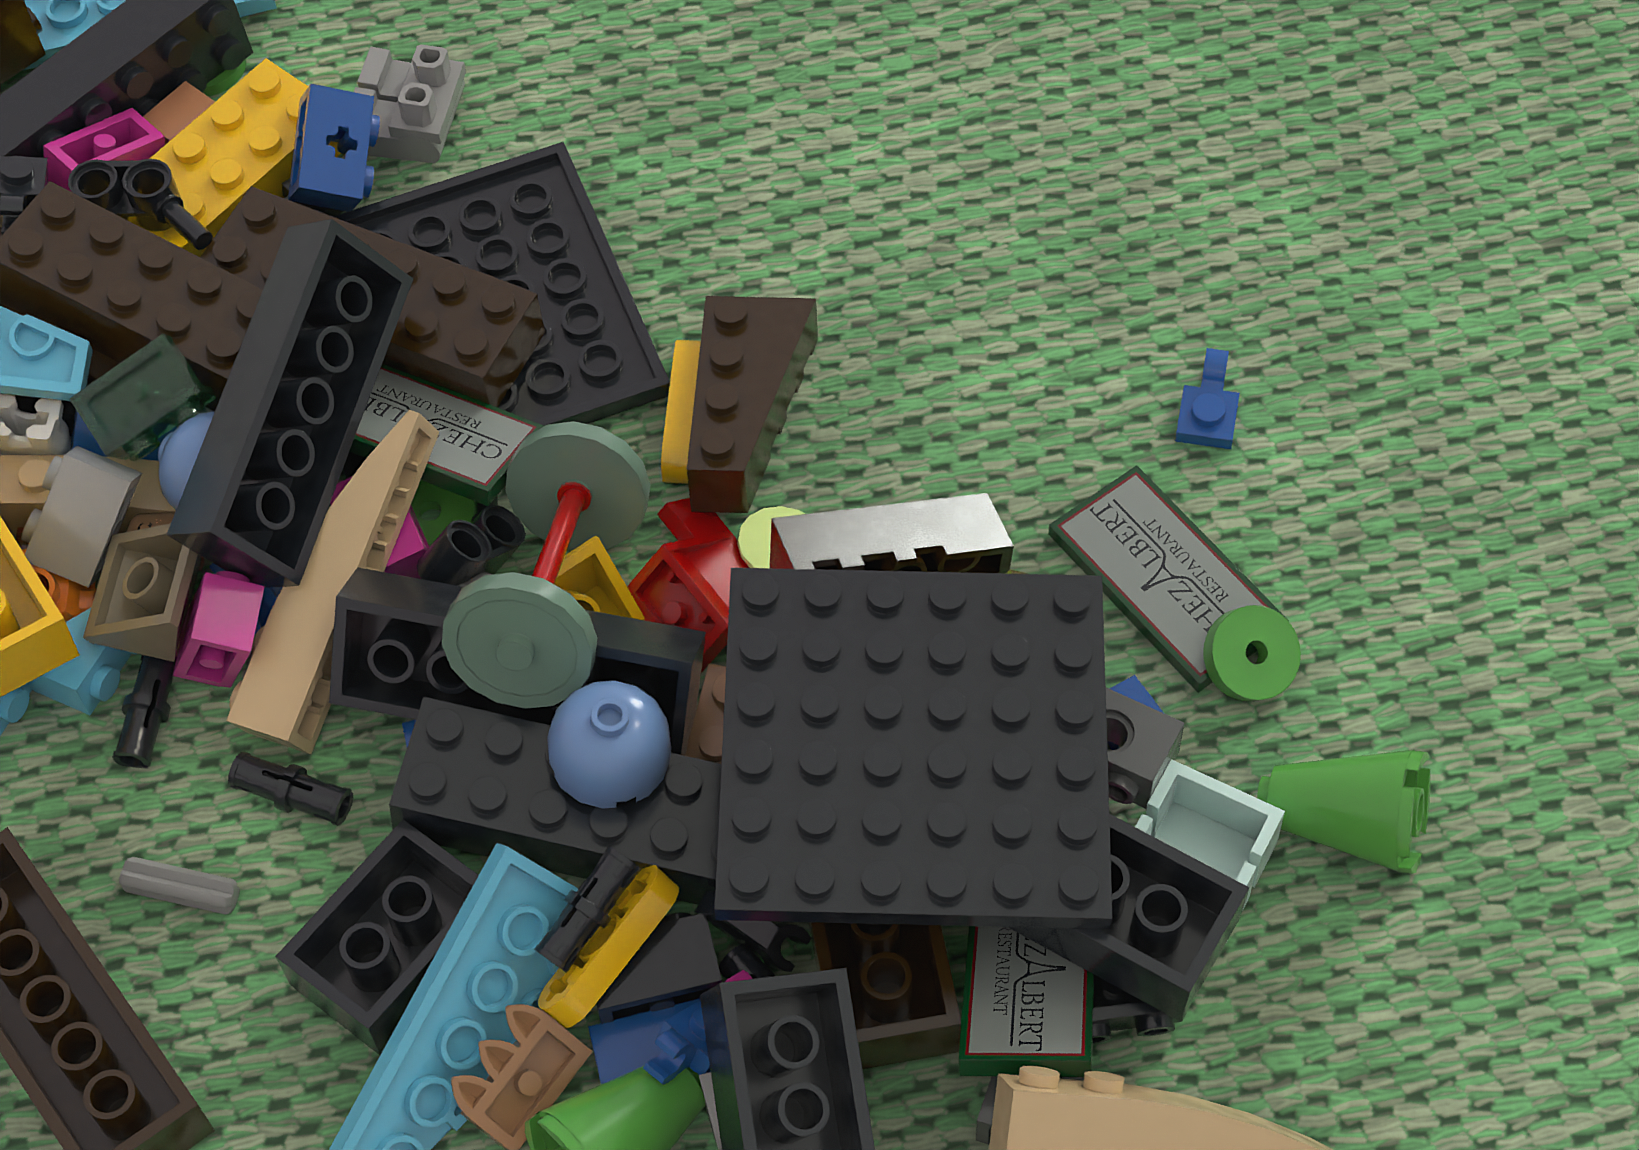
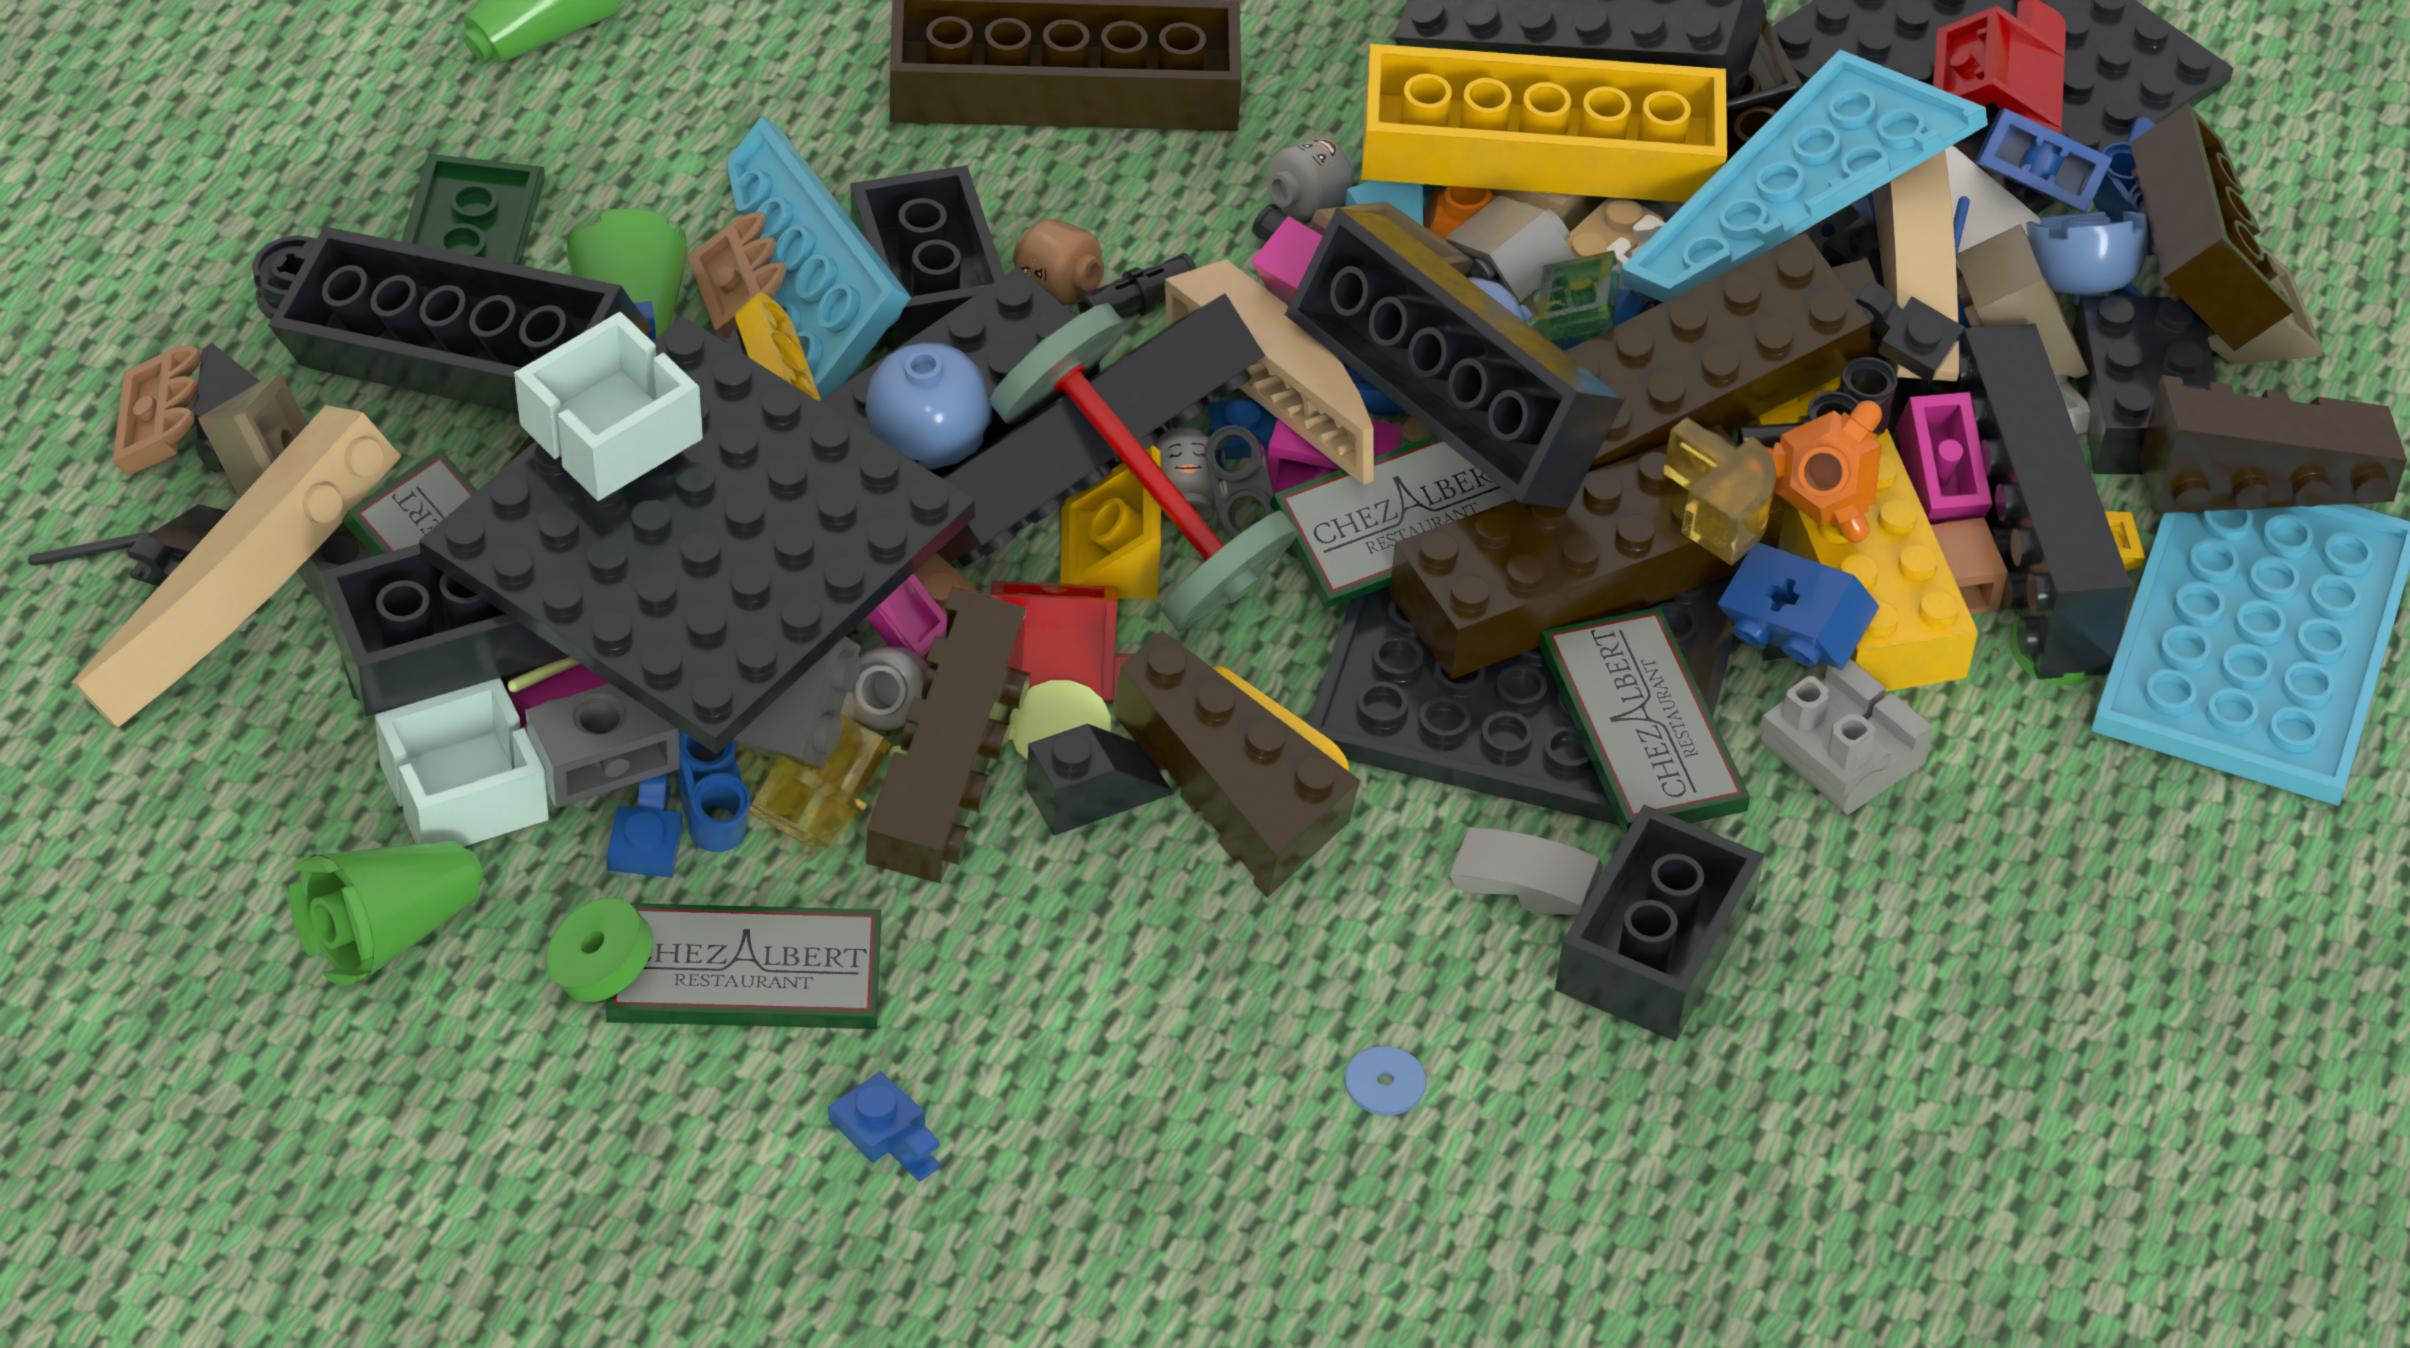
camera: 120 degrees right, 10 degrees down
(63, 749) = (1310, 176): none -> light grey head
(179, 885) = (1120, 195): light grey axle -> none
(205, 158) = (1832, 468): none -> orange rock
(285, 181) = (1726, 487): none -> clear yellow brick
(305, 859) = (1060, 259): none -> medium nougat head
(501, 192) = (1643, 718): none -> light grey tile
(587, 909) = (811, 344): black pin -> none
(667, 97) = (1659, 922): none -> black brick
(673, 208) = (1536, 869): none -> light grey slope
(821, 475) = (1089, 777): none -> black slope
(896, 200) = (1379, 1061): none -> medium blue wheel
(905, 818) = (609, 405): none -> light aqua piece

